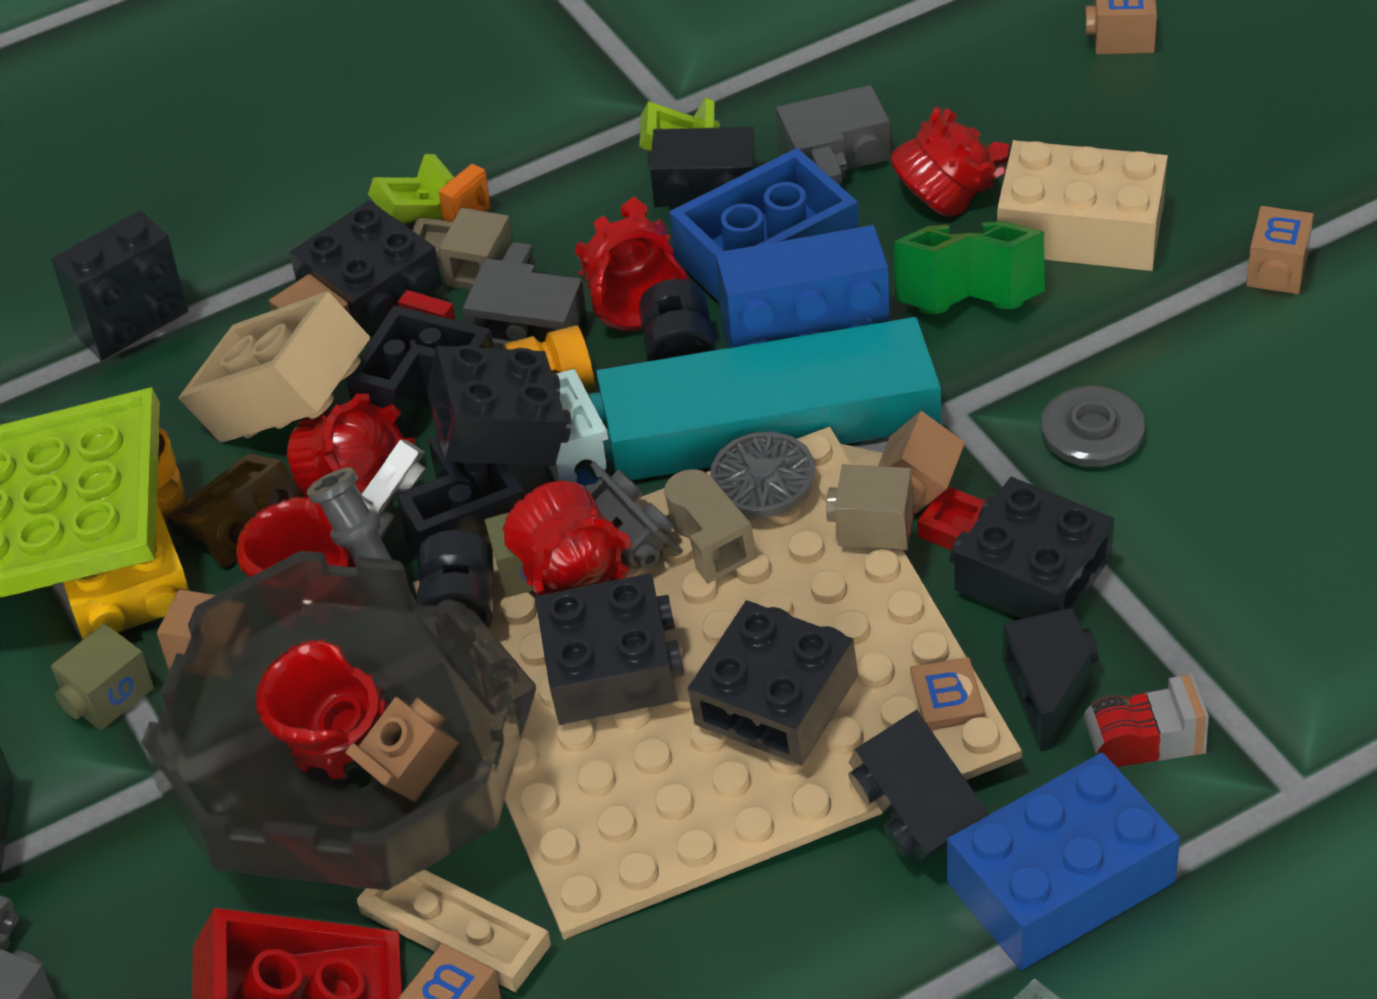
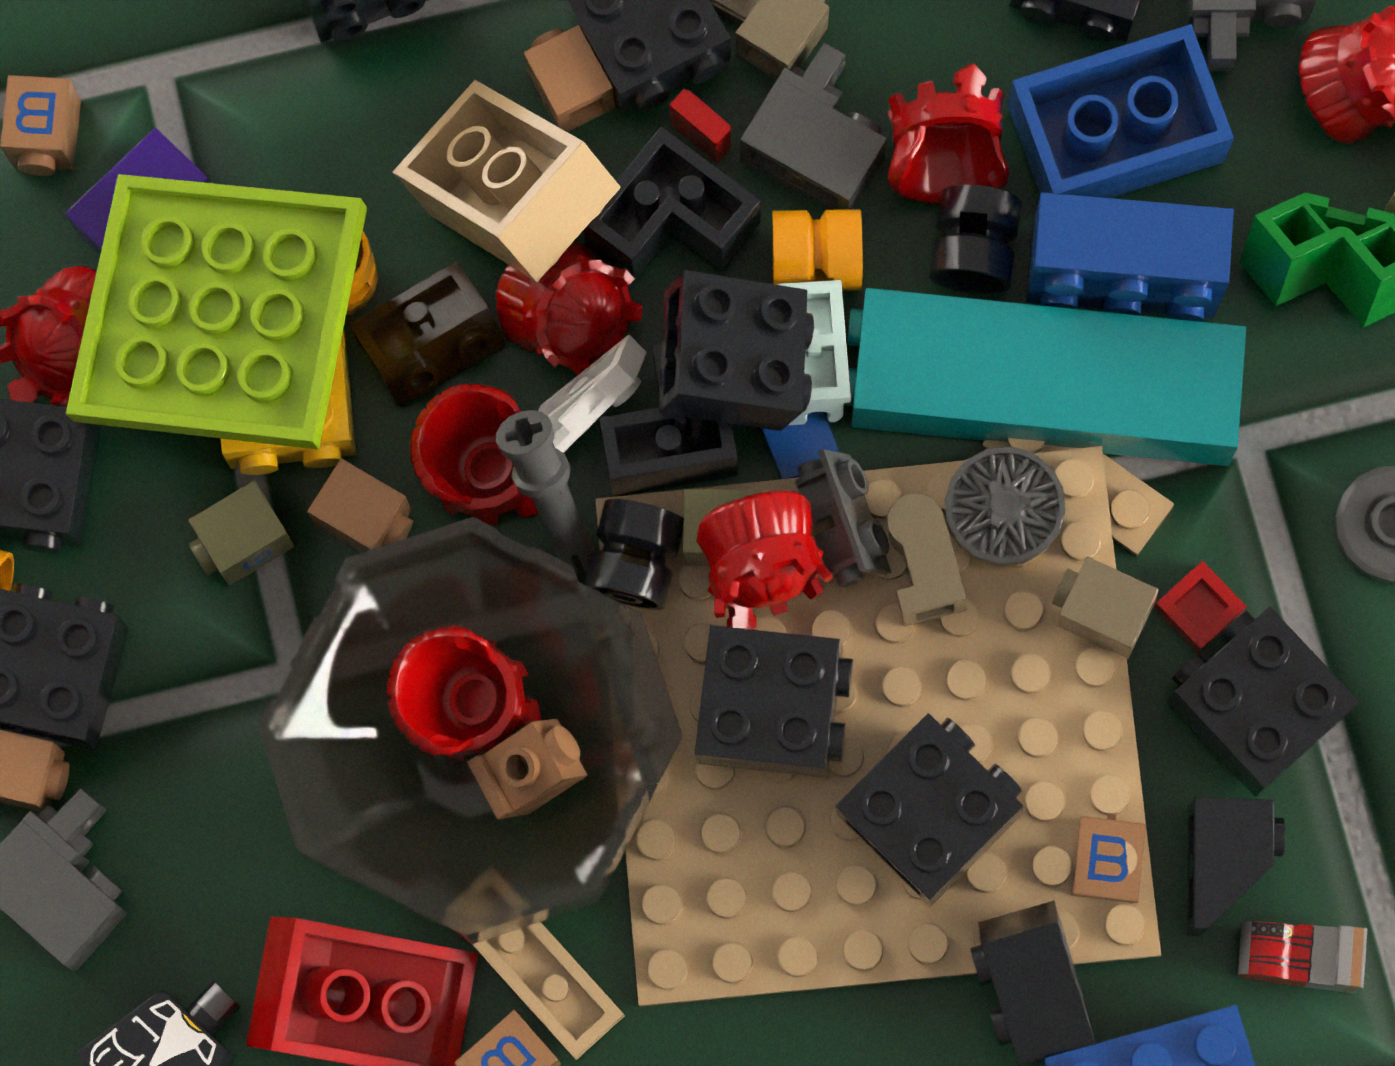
camera: 15 degrees right, 30 degrees up
(930, 454) = (1180, 532): medium nougat brick -> none

